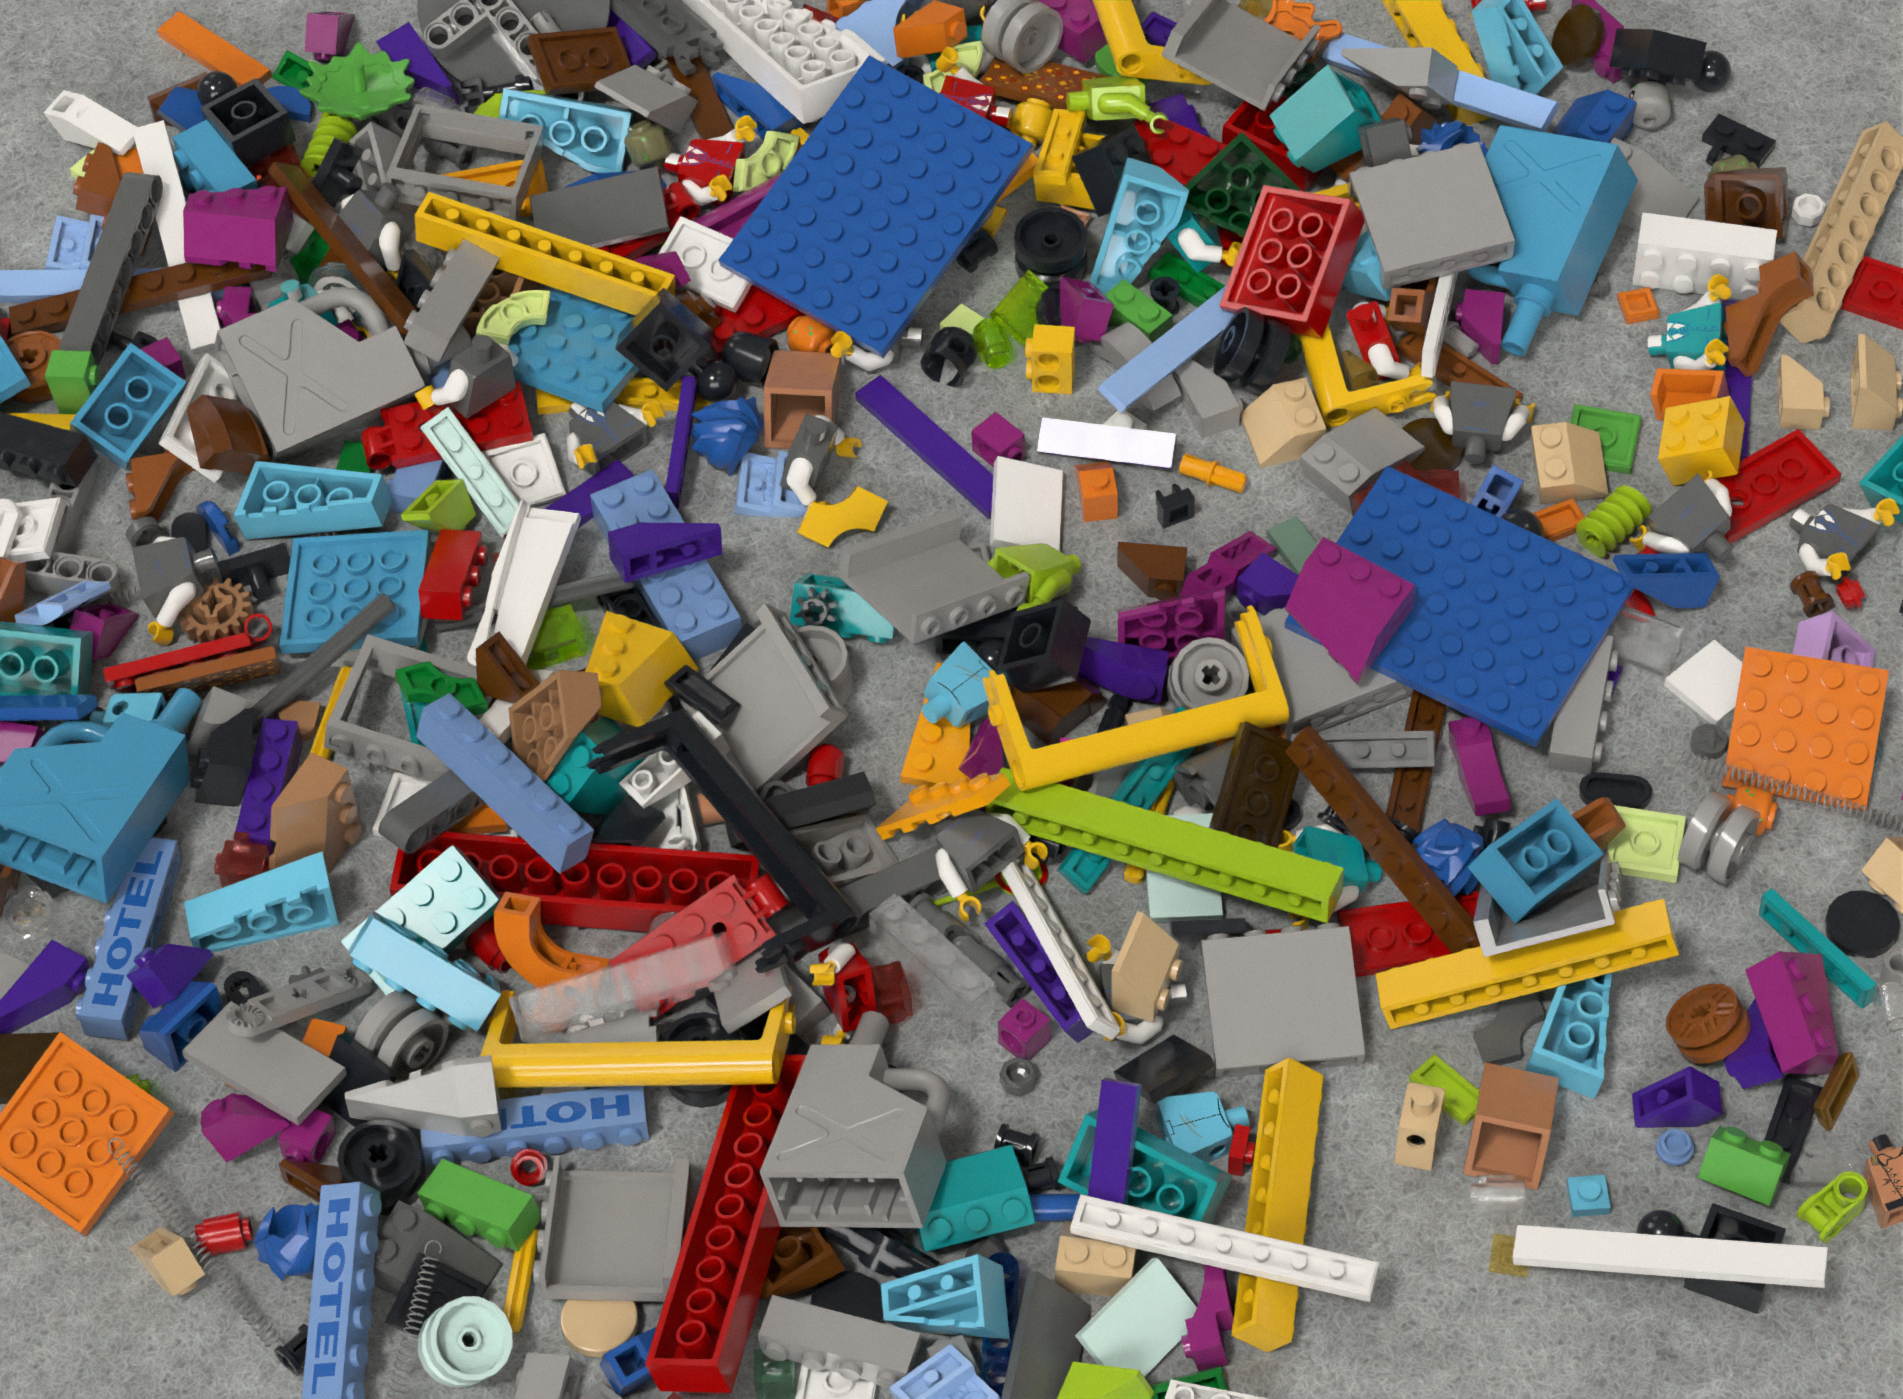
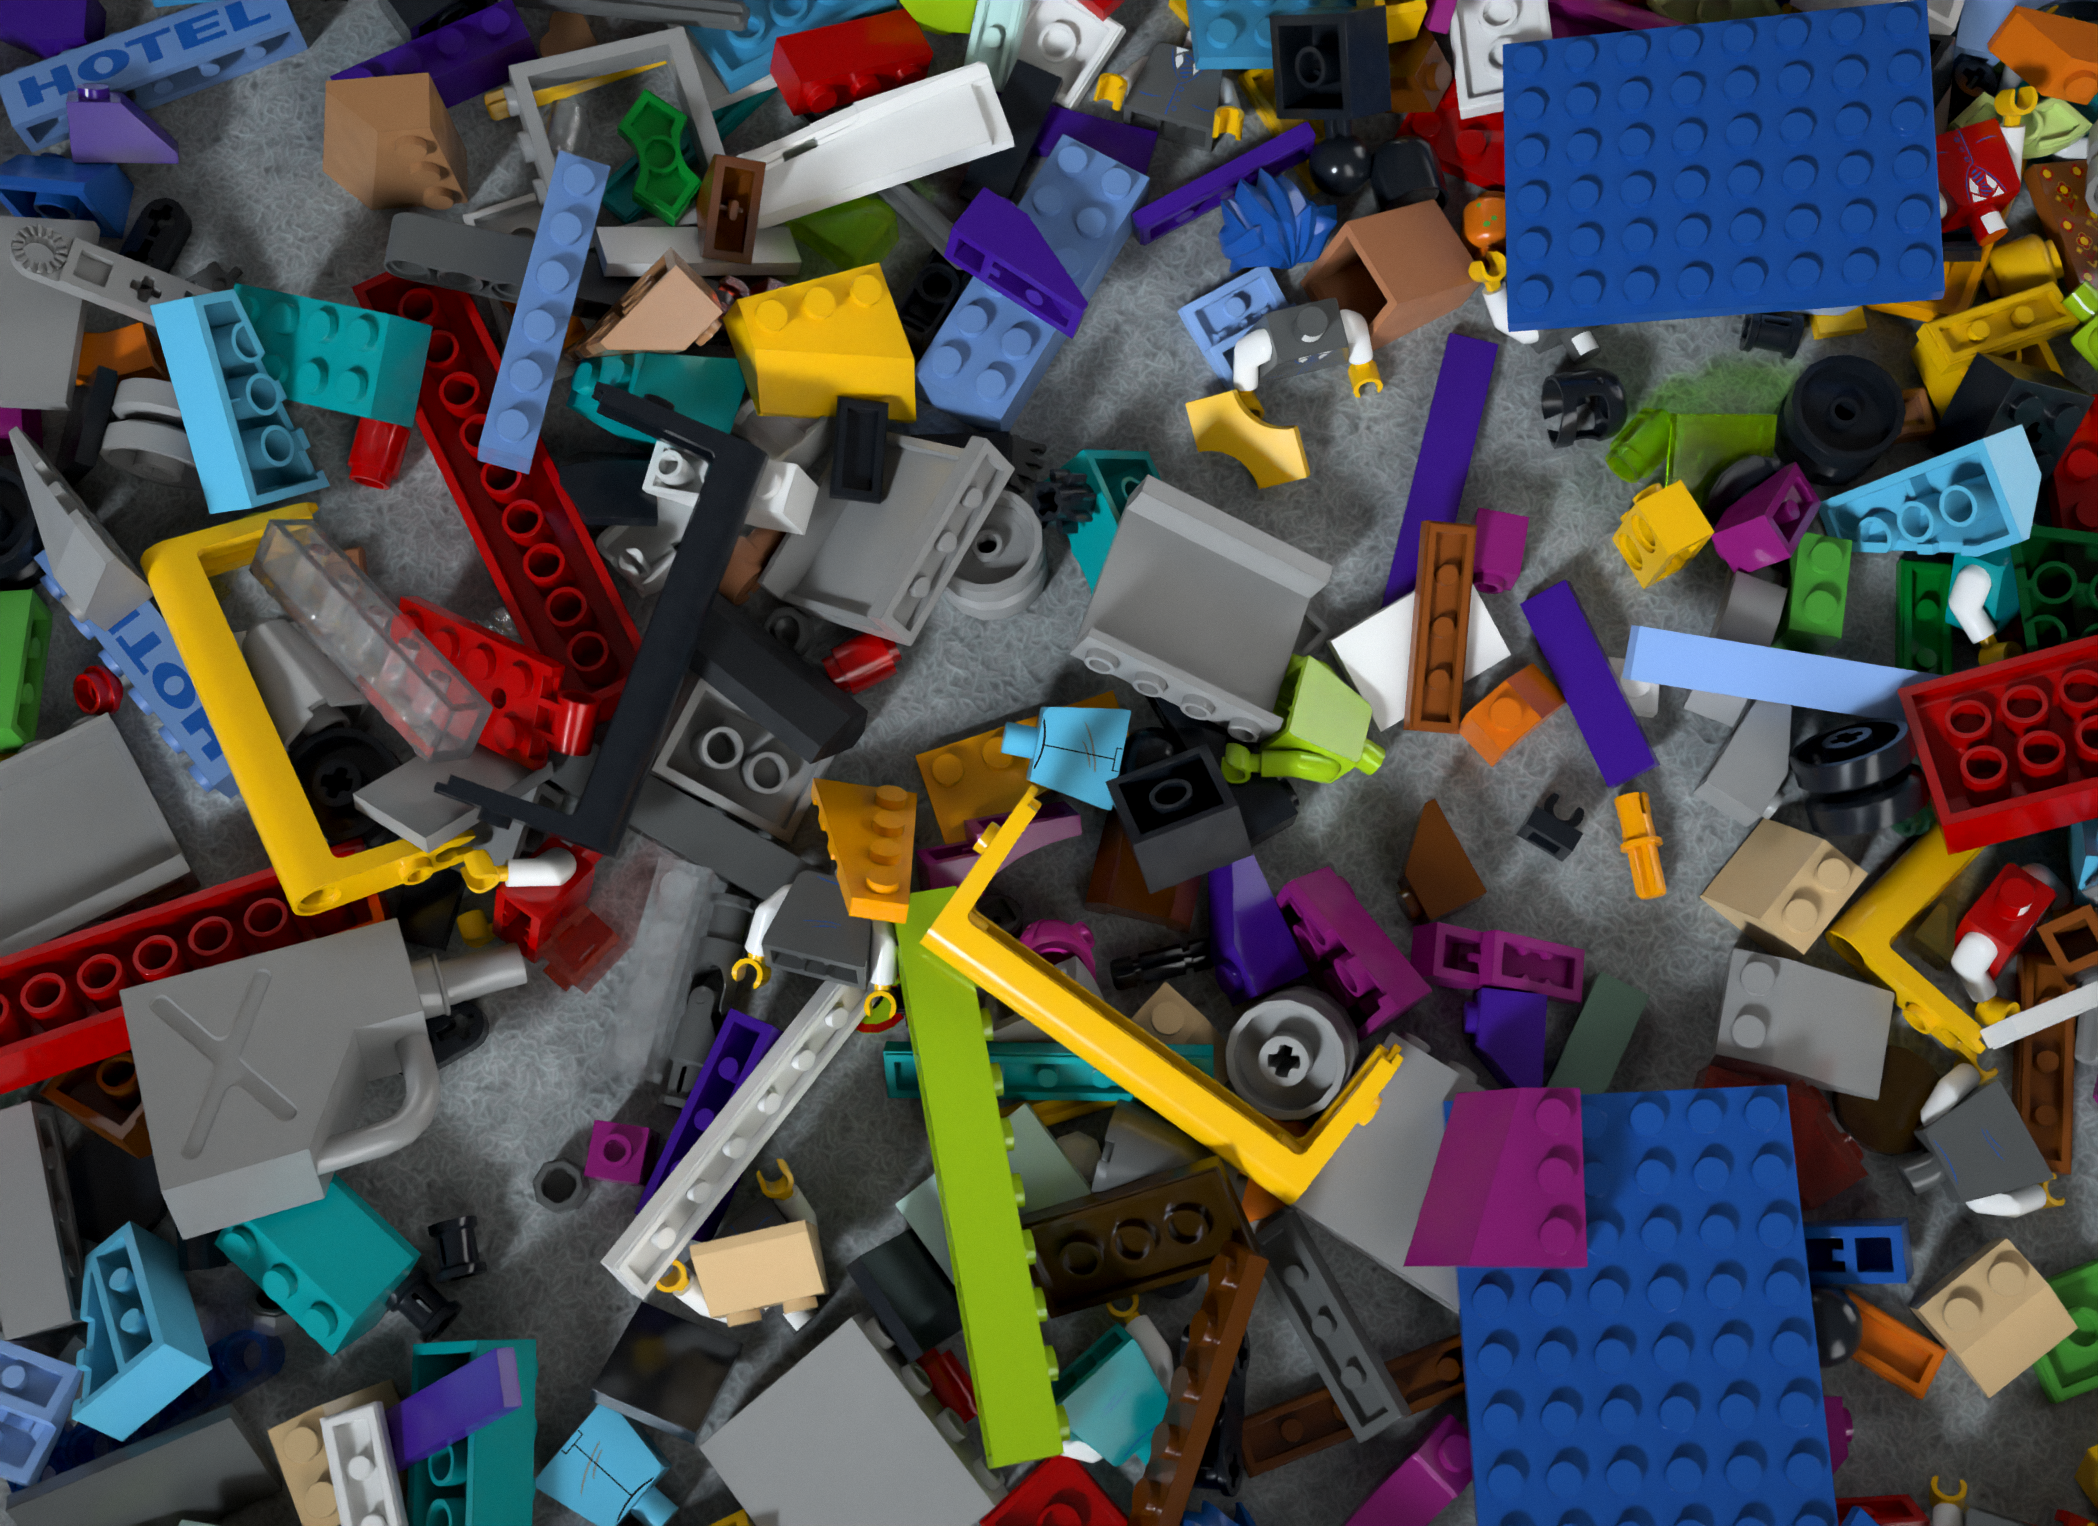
camera: 55 degrees right, 20 degrees up
(241, 860) = (307, 106): clear red brick -> none
(264, 907) = (272, 173): medium azure wedge -> none
(528, 946) = (374, 506): orange arch -> none
(583, 554) = (1026, 106): none -> black tile
(962, 318) = (1650, 387): yellowish green tile -> none
(1025, 487) = (1440, 627): none -> dark orange tile
(1054, 1206) = (392, 1354): blue cylinder -> none
(1164, 292) = (1883, 596): black bush -> none
(1613, 520) = (1946, 1432): lime piece -> none

